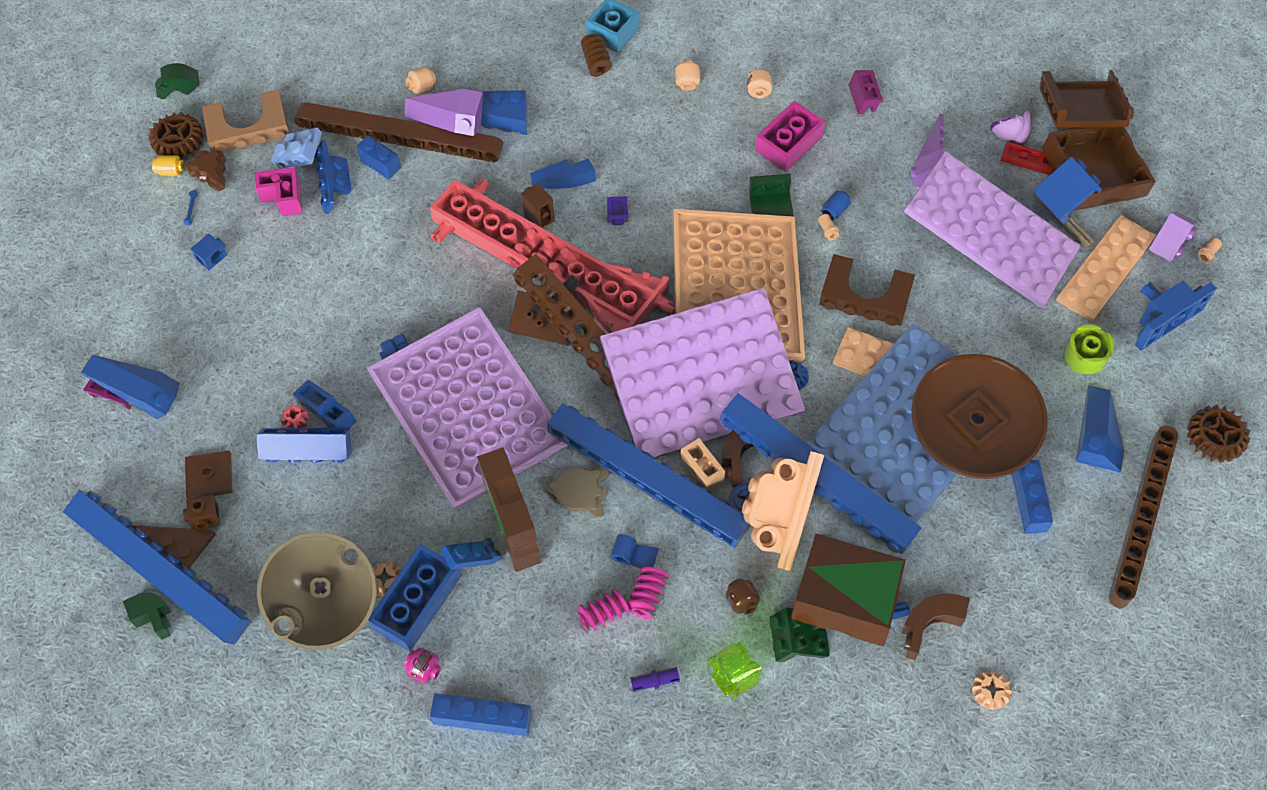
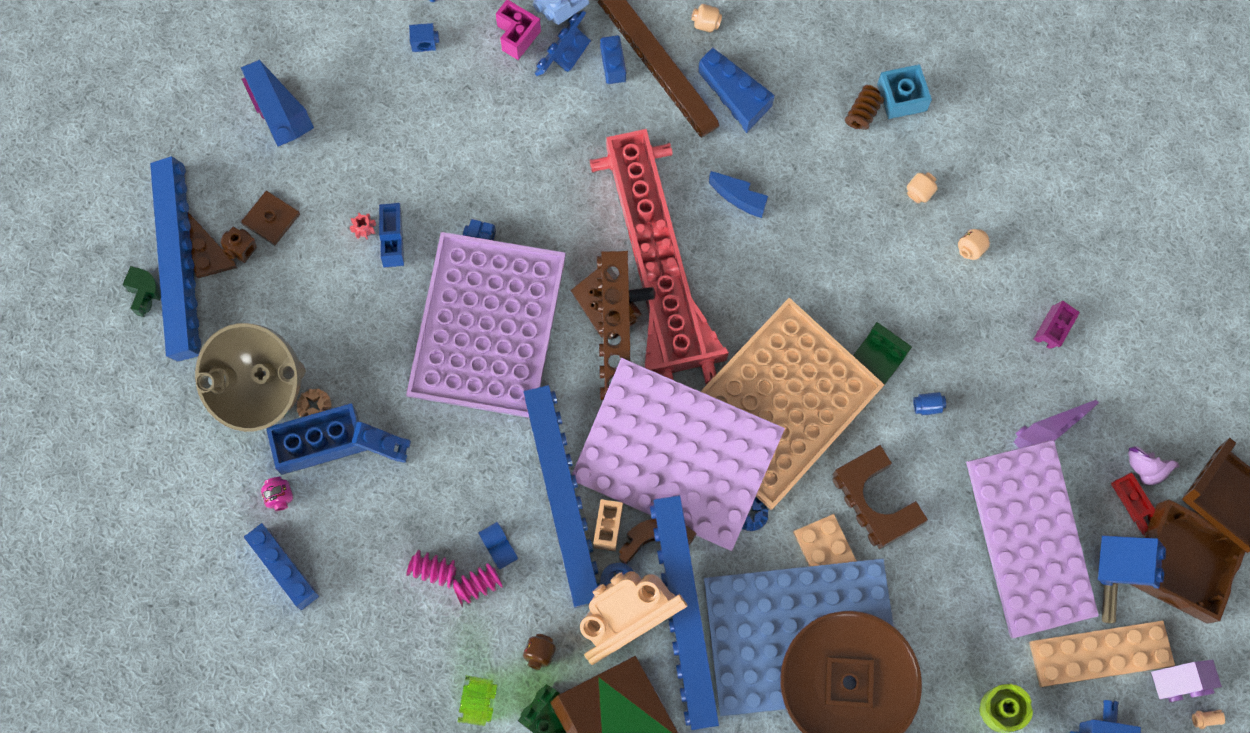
camera: 40 degrees right, 10 degrees up
(304, 444) = (349, 252): brick -> none
(450, 110) = (698, 67): medium lavender wedge -> none
(509, 509) = (429, 435): reddish brown tile -> none
(538, 206) = (689, 205): reddish brown brick -> none
(580, 490) = (506, 461): dark tan tile -> none
(617, 210) = (750, 259): dark purple bracket -> none
(655, 679) = (421, 653): dark purple pin -> none
(789, 136) = (950, 312): dark pink brick -> none
(831, 232) = (904, 417): light nougat pin -> none

